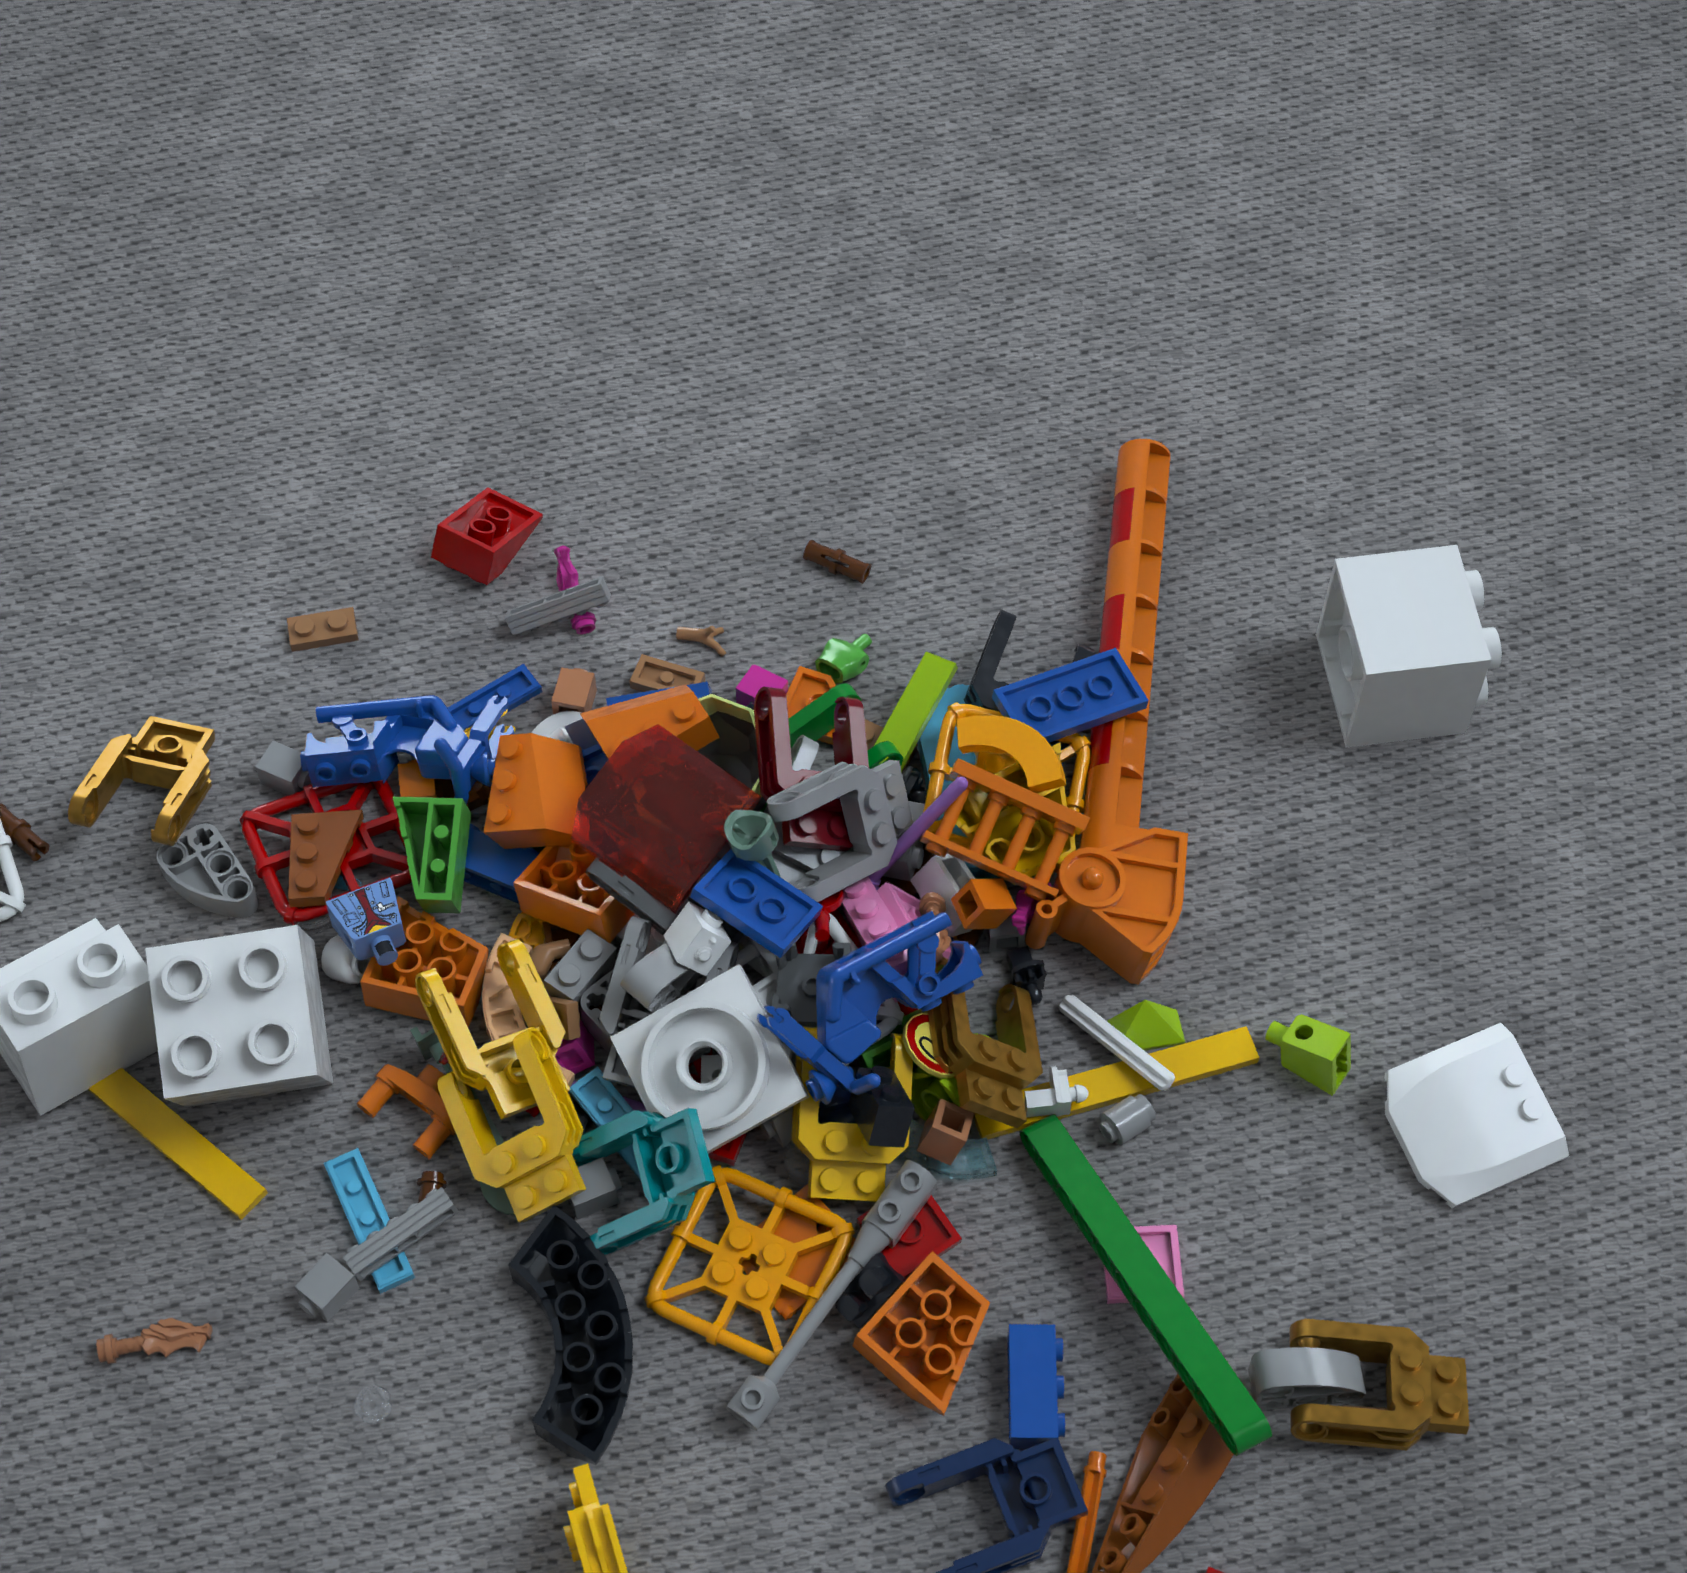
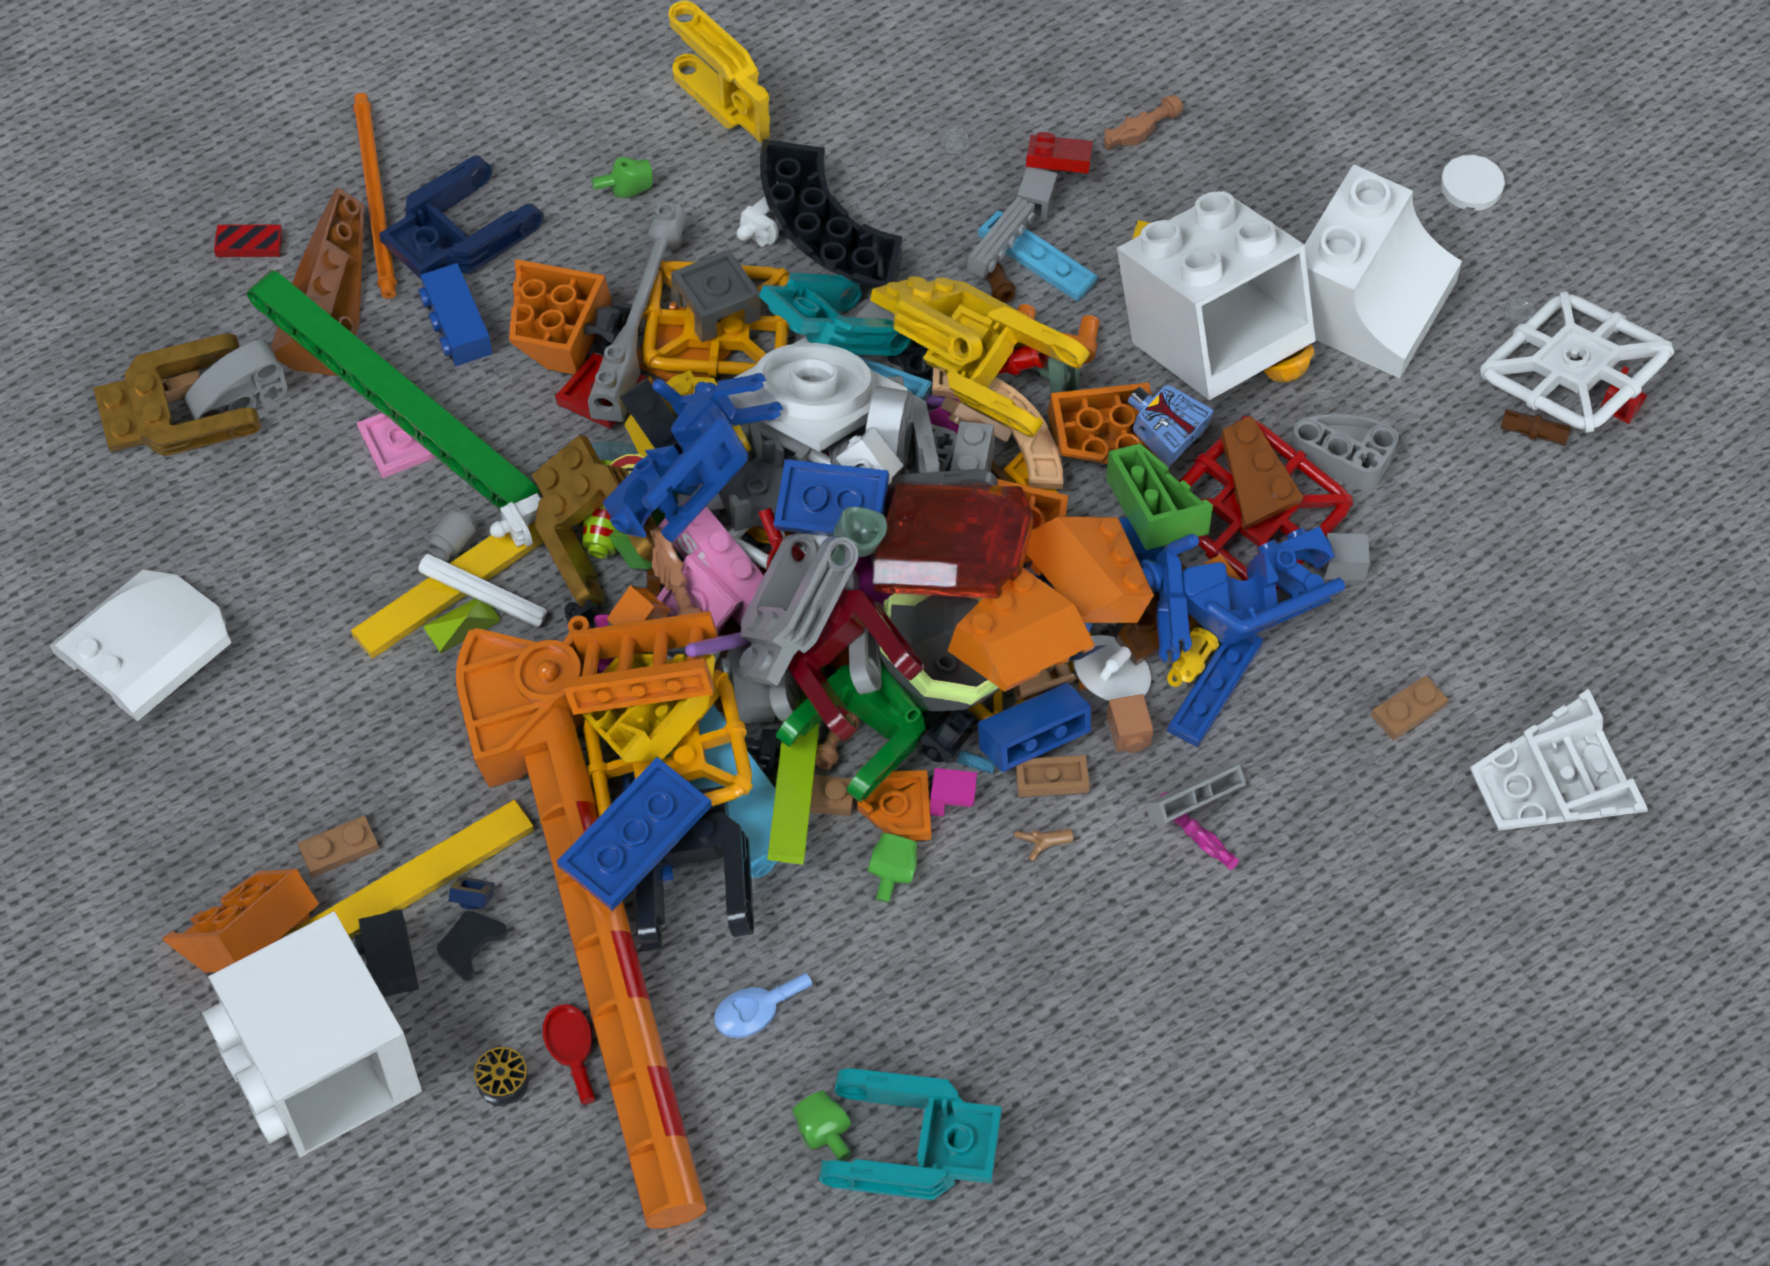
camera: 155 degrees right, 0 degrees up
(160, 755) = (1454, 528): pearl gold plate -> none
(245, 518) = (1557, 772): none -> white wedge
(273, 1323) = (1058, 153): none -> red plate
(484, 535) = (1317, 859): red slope -> none
(545, 954) = (1013, 469): medium nougat arm -> none
(653, 1379) = (758, 224): none -> white piece
(745, 1259) = (715, 290): none -> dark grey panel
(770, 1495) = (627, 178): none -> bright green piece
(817, 553) = (952, 971): reddish brown pin -> none
(907, 430) = (954, 1141): none -> teal plate
(945, 1132) = (604, 441): nougat brick -> none
(997, 490) = (822, 1123): none -> bright green piece
(1015, 596) = (754, 1007): none -> light blue piece
(1018, 741) = (660, 738): light orange tile -> none
(1179, 619) = (570, 1043): none -> red piece
(1223, 764) = (471, 892): none -> dark blue plate
(1240, 727) = (466, 939): none -> black piece
(1254, 604) = (502, 1077): none -> black wheel
(1287, 798) = (432, 868): none -> yellow tile
(1313, 1051) = (302, 638): lime torso -> none
(1314, 738) = (387, 952): none -> black brick
(1330, 856) = (338, 846): none -> medium nougat plate
(1437, 806) = (247, 921): none -> orange wedge

